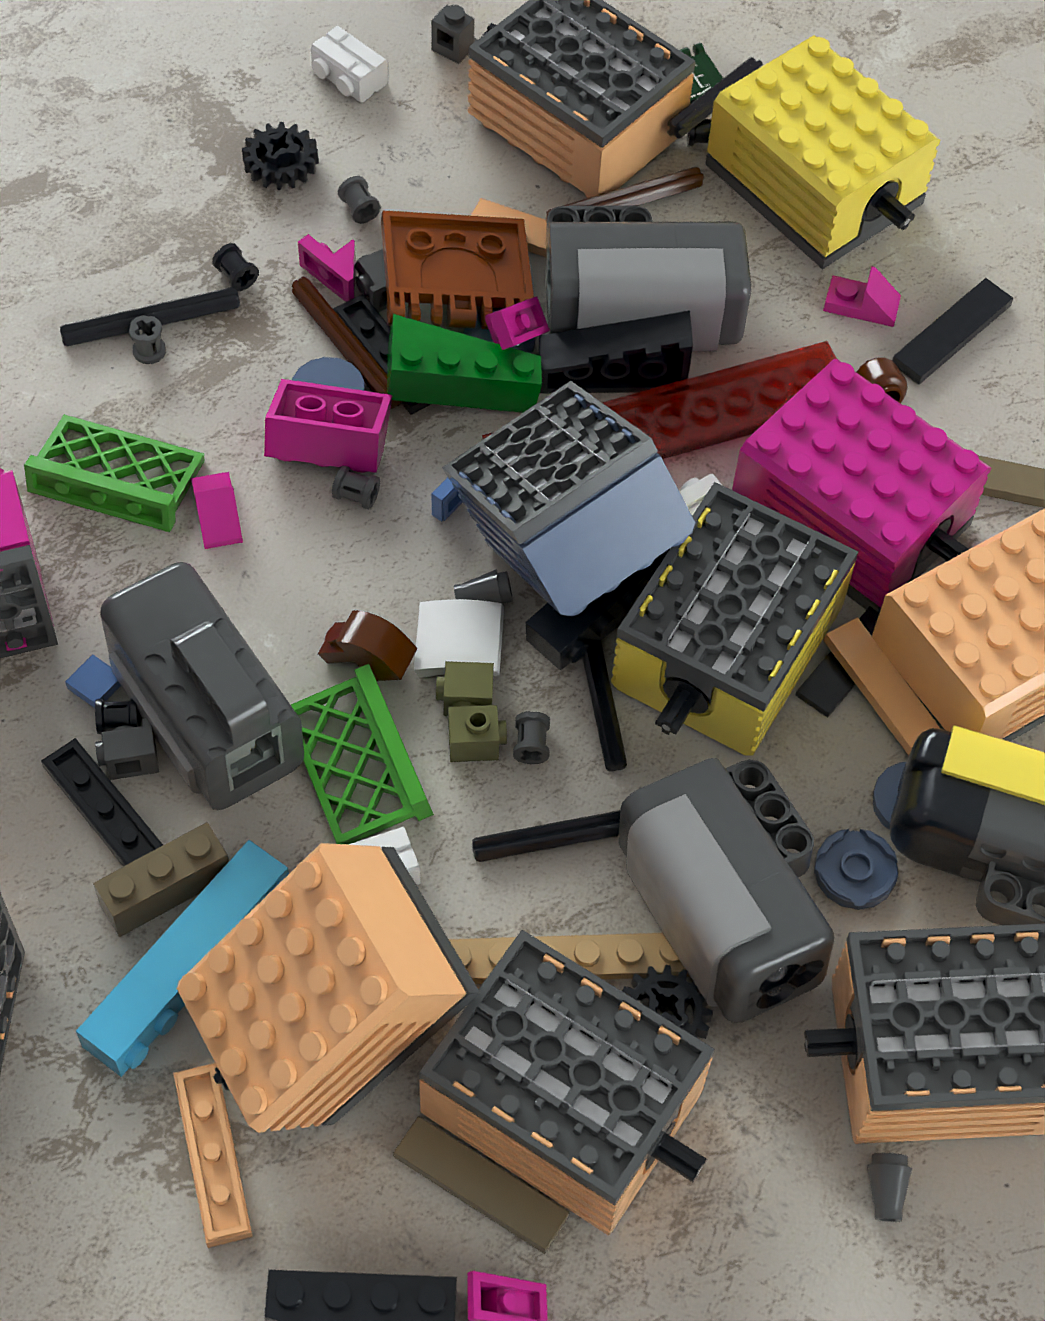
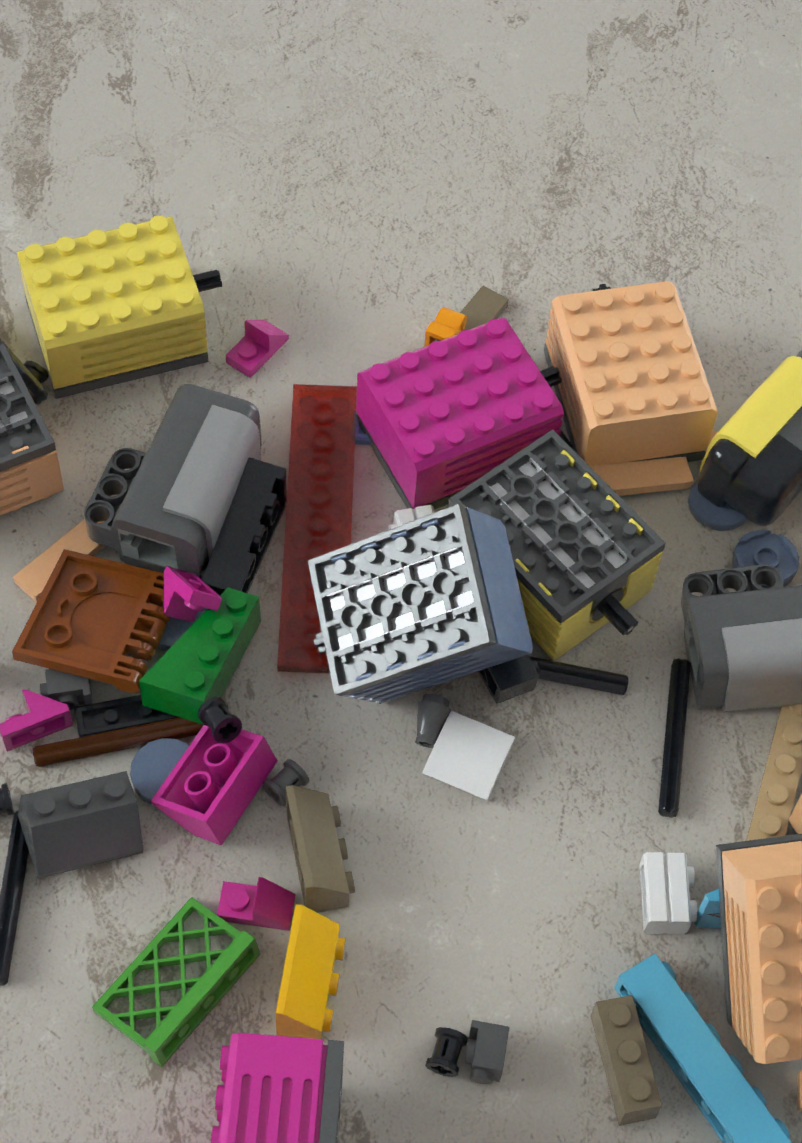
camera: 70 degrees left, 0 degrees up
(93, 681) = (399, 1064): medium blue tile -> none
(100, 803) = (531, 1092): black tile -> none
(134, 550) = (309, 975): none -> yellow slope
(144, 342) = (40, 893): dark grey bush -> none
(200, 686) = (462, 965): dark grey piece -> none
(236, 335) = (81, 824): none -> dark grey slope
(285, 527) = (318, 849): none -> dark tan slope
(369, 641) = (454, 824): reddish brown brick -> none
(384, 397) = (222, 723): none -> black bush
(391, 753) = (555, 840): bright green fence -> none
(445, 500) = (327, 712): medium blue tile -> none
(465, 685) = (524, 765): olive brick -> none
(475, 733) = (566, 774): olive brick -> none
(531, 738) = (584, 734): dark grey bush -> none
(646, 191) = (72, 469): reddish brown axle -> none
(885, 374) = (347, 363): reddish brown head -> none
(952, 330) = (315, 301): black tile -> none
(984, 442) = (445, 325): none -> light orange leg

